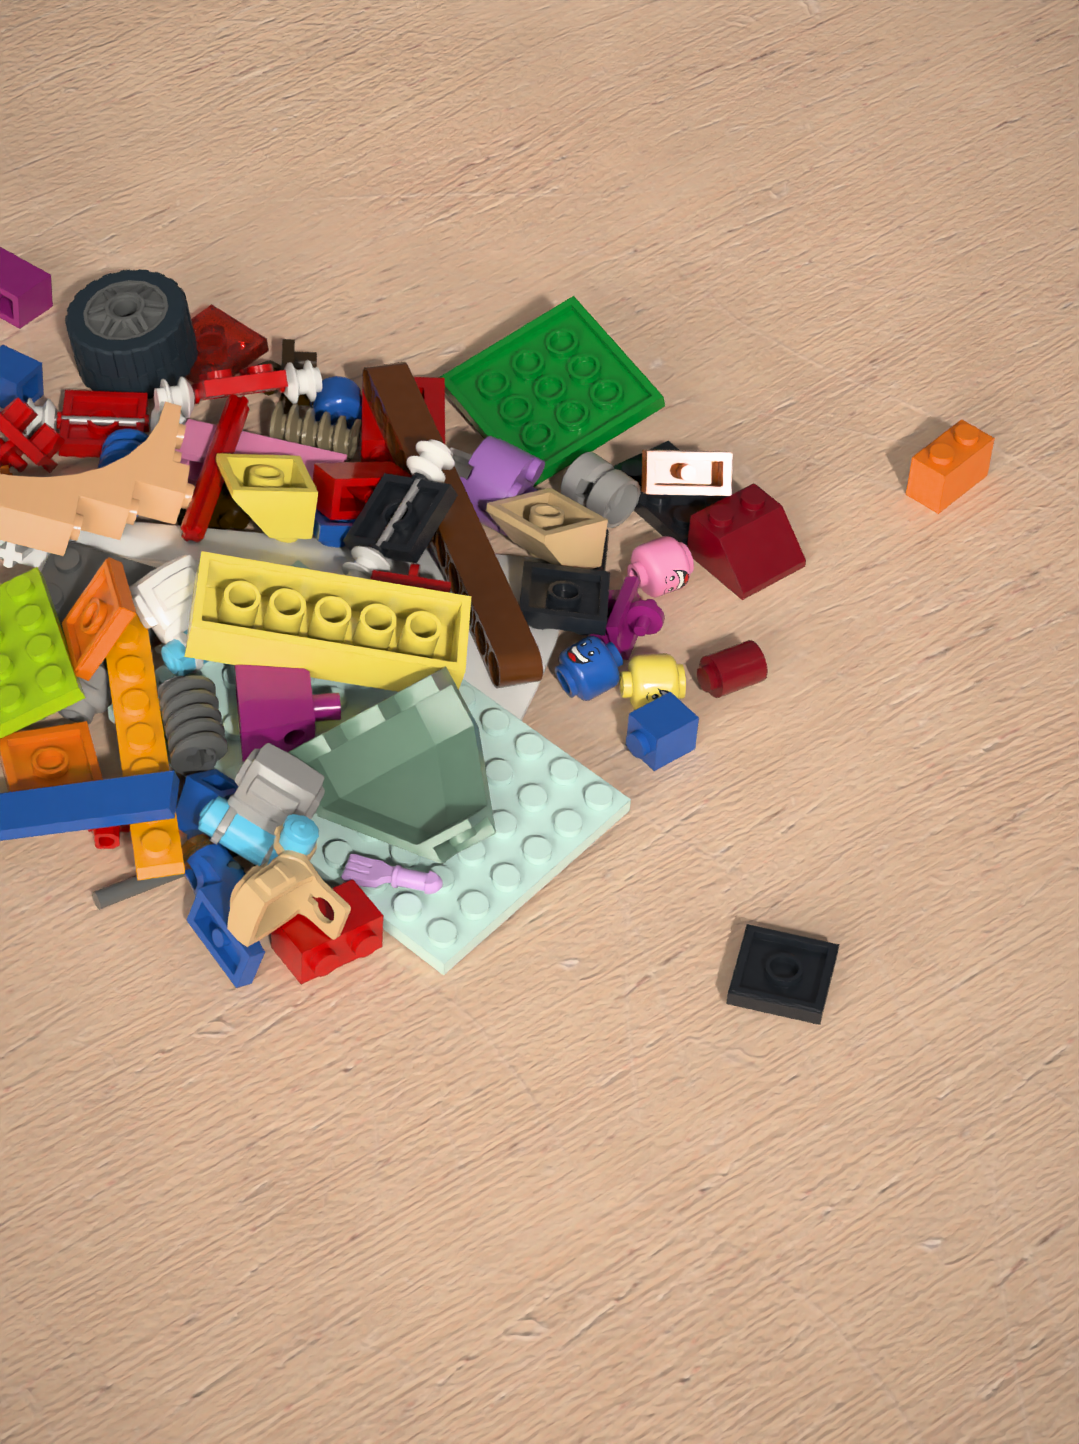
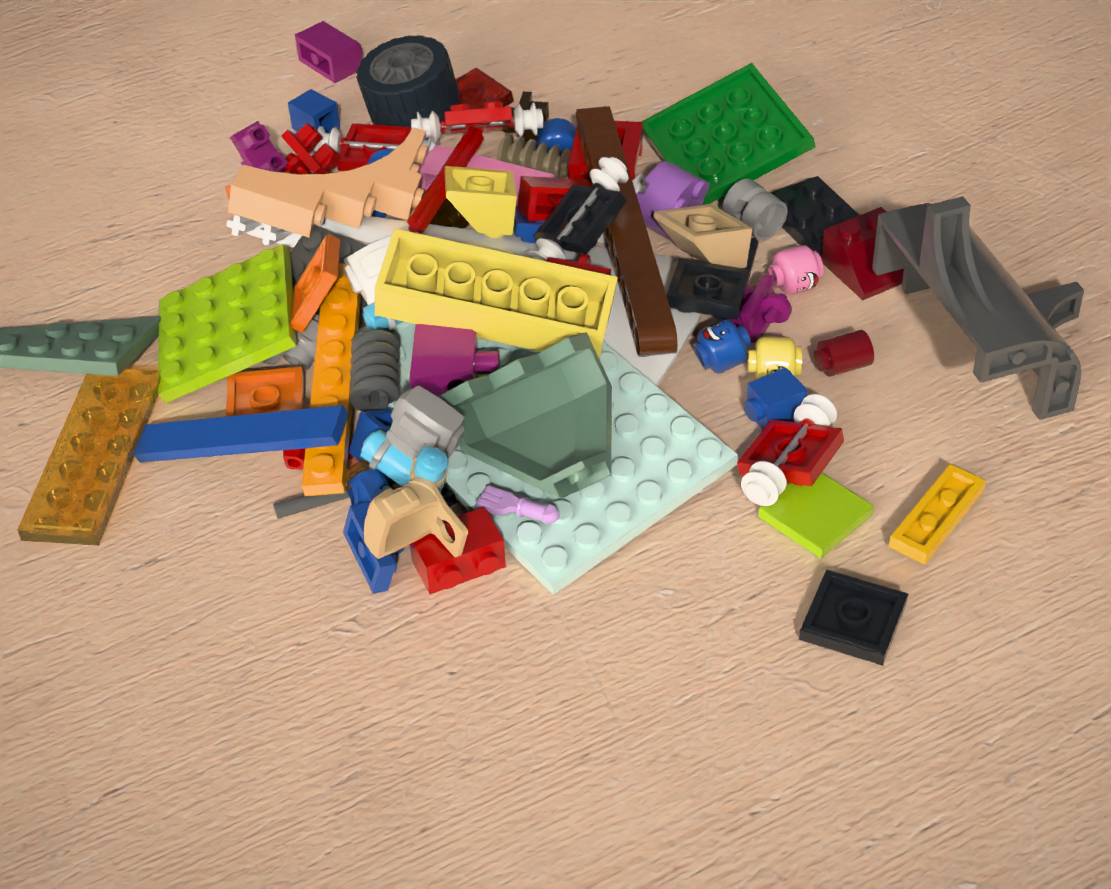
camera: 15 degrees right, 0 degrees up
(686, 472) = (825, 195): brick -> none
(688, 791) = (791, 451): none -> plate
(724, 859) = (817, 514): none -> lime tile
(859, 853) = (937, 514): none -> yellow plate
(915, 625) = (1001, 320): none -> dark grey cylinder
(949, 466) = (1050, 202): orange brick -> none

